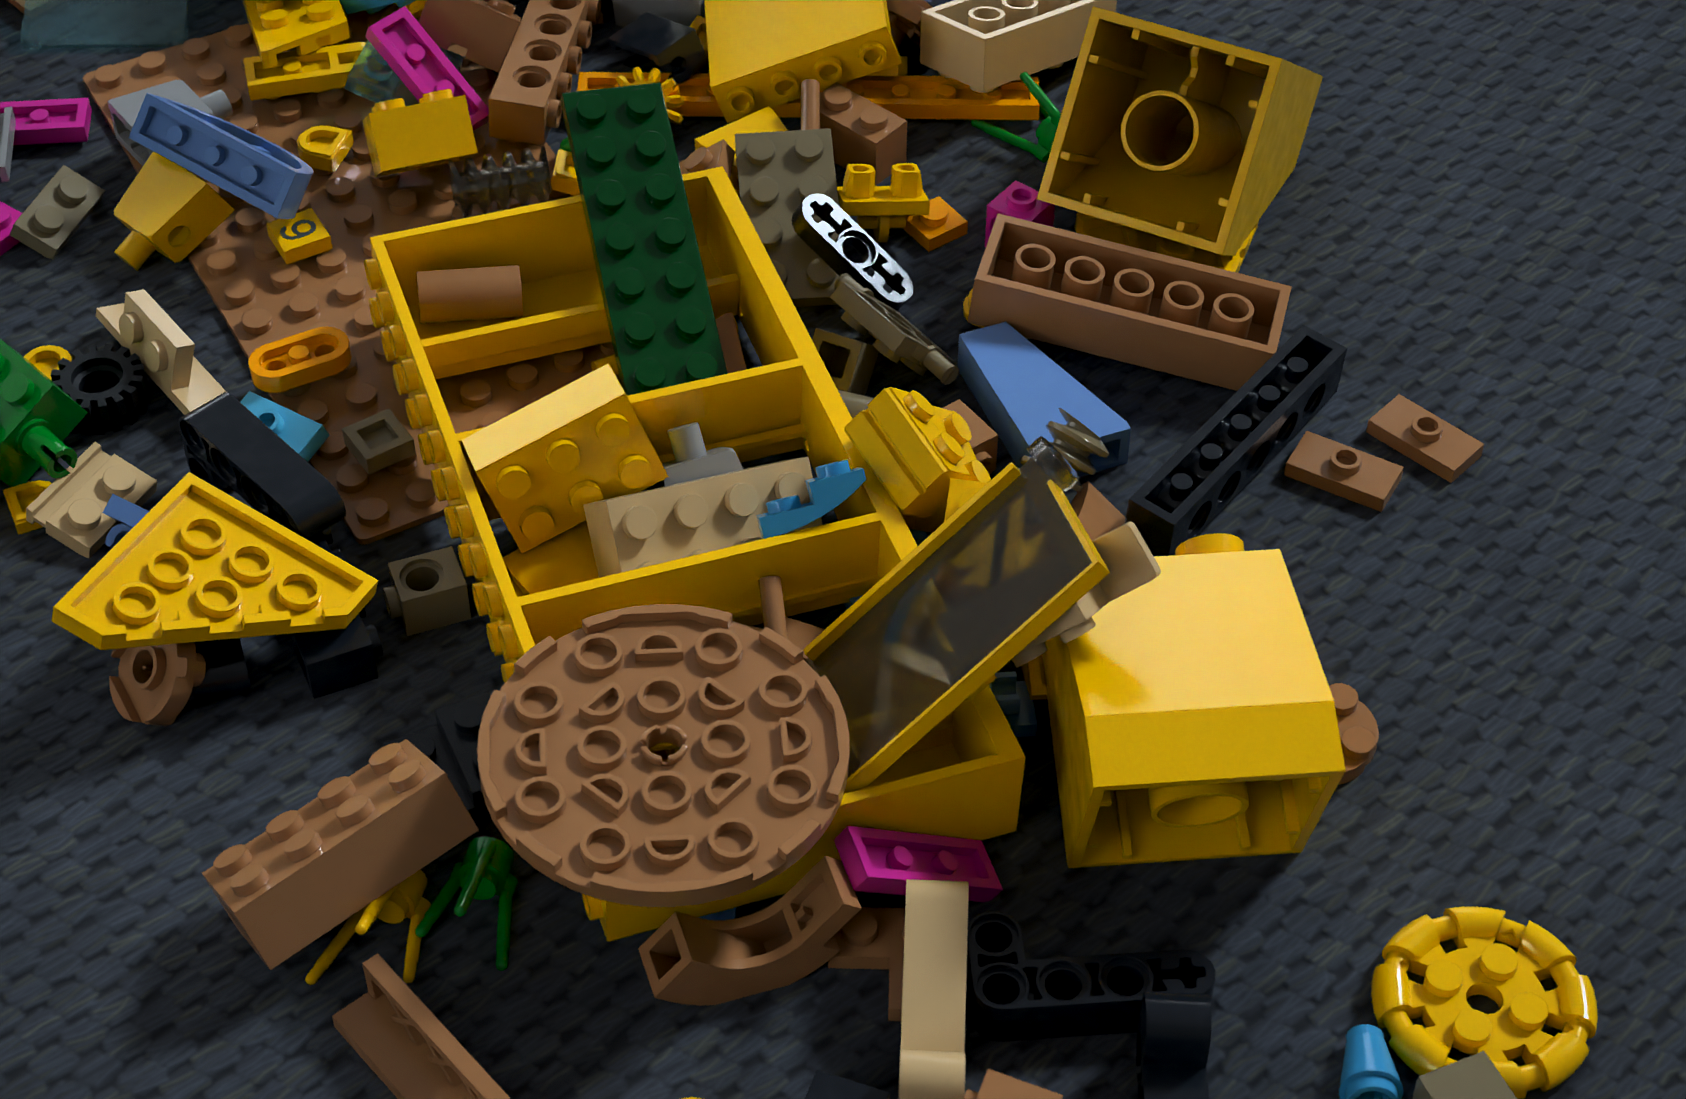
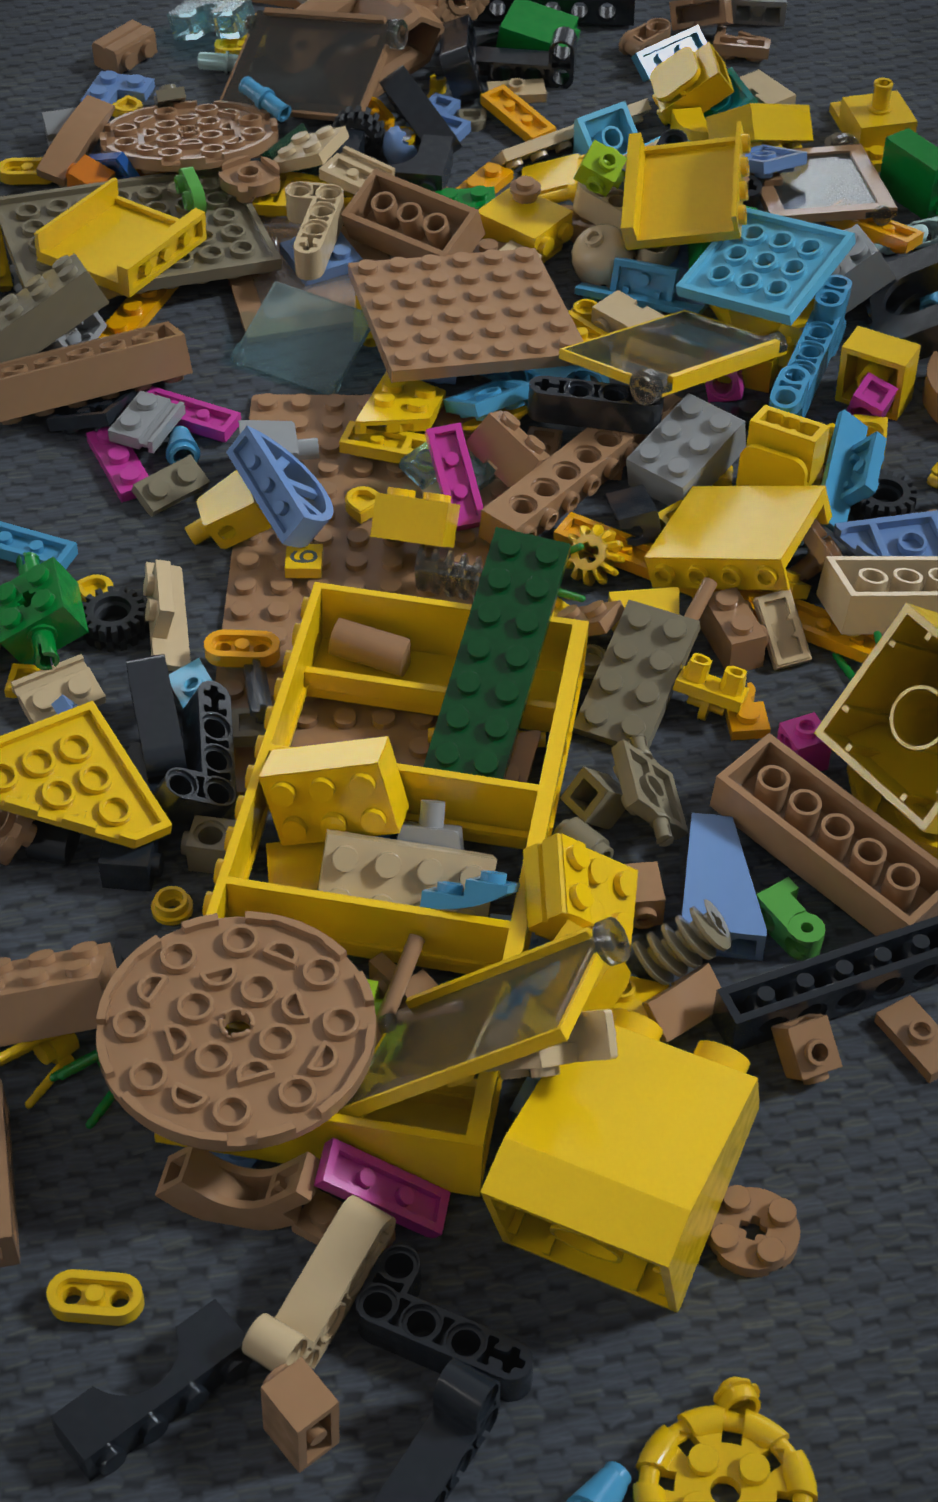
camera: 30 degrees right, 0 degrees up
(37, 162) = (181, 445): none -> dark azure cone
(364, 396) = (257, 690): none -> black axle
(378, 516) = (210, 775): none -> black beam
(422, 669) = (169, 897): none -> yellow plate
(850, 233) = (659, 690): black beam -> none
(901, 95) = (786, 636): none -> tan plate
(1151, 413) = (789, 923): none -> bright green leg
(1253, 515) = (807, 1048): none -> medium nougat brick
(1429, 898) = (737, 1395): none -> yellow plate

